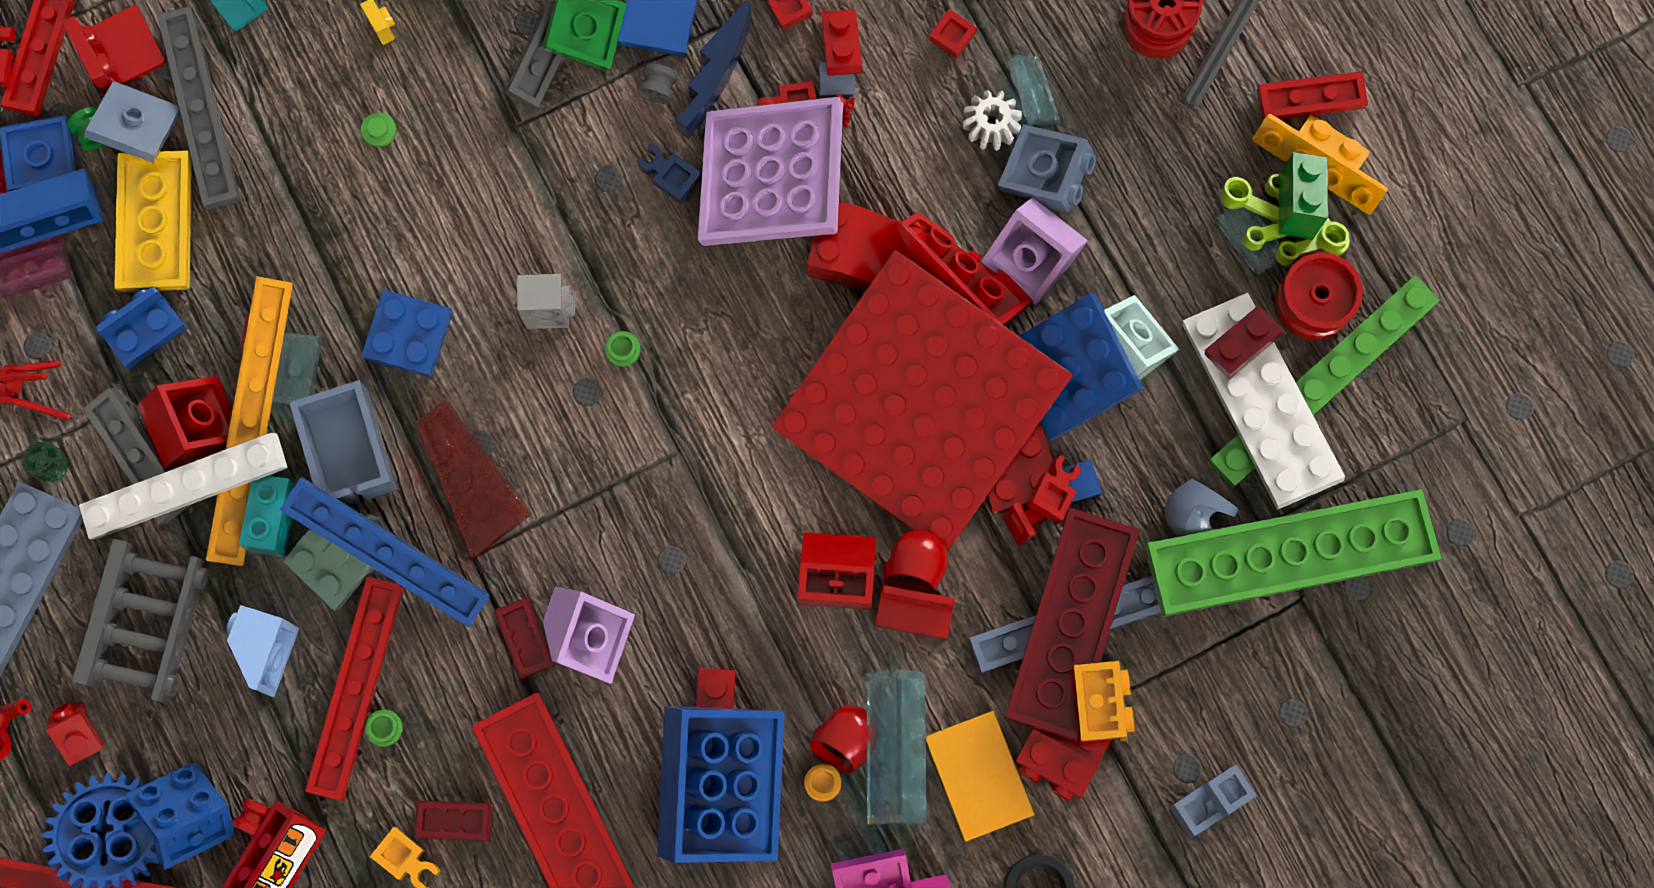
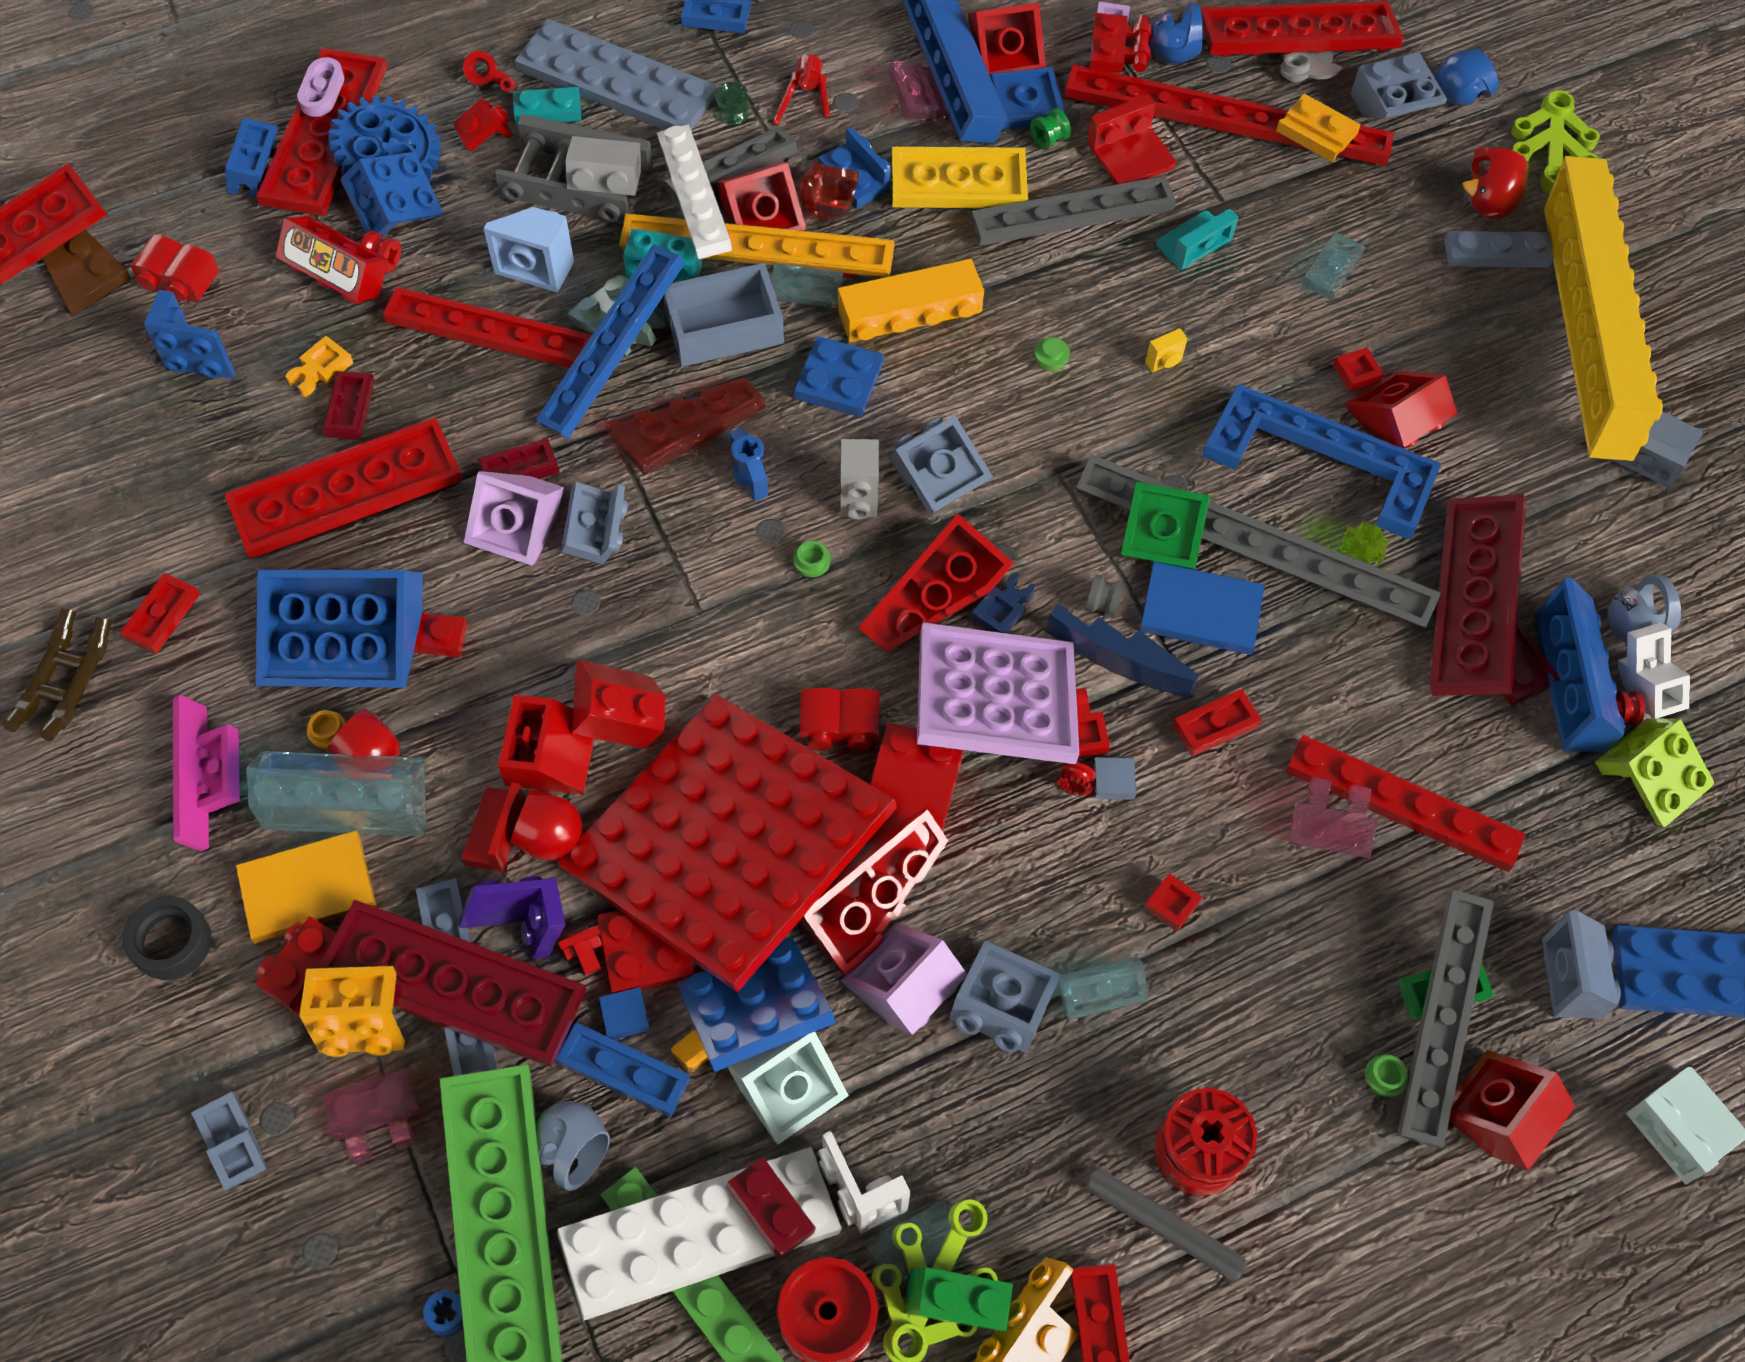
camera: 90 degrees right, 15 degrees down
(42, 665) = (549, 104): none -> teal plate
(132, 122) = (1054, 155): sand blue plate -> none
(155, 580) = (603, 165): none -> light grey brick
(177, 348) = (828, 190): none -> clear red helmet
(318, 264) = (910, 300): none -> light orange brick
(383, 728) = (448, 351): bright green plate -> none
(516, 231) = (940, 463): none -> sand blue plate
(519, 414) = (749, 468): none -> blue piece
(590, 553) = (594, 522): none -> sand blue bracket
(645, 228) = (943, 580): none -> red wedge
(790, 509) = (617, 705): none -> red slope
(793, 313) = (839, 718): none -> red brick
(841, 42) = (1158, 781): red plate -> none
(1004, 126) = (1051, 930): white gear -> none
(1011, 554) = (528, 901): none -> dark purple bracket
(1052, 493) = (604, 971): red plate -> none
(1110, 422) = (690, 1052): none -> light orange slope
(1131, 473) = (623, 1069): none -> blue plate
(1173, 685) = (371, 1105): none -> clear pink plate
(1232, 263) = (883, 1199): none -> white bracket
(1330, 591) = (432, 1319): none -> blue bush

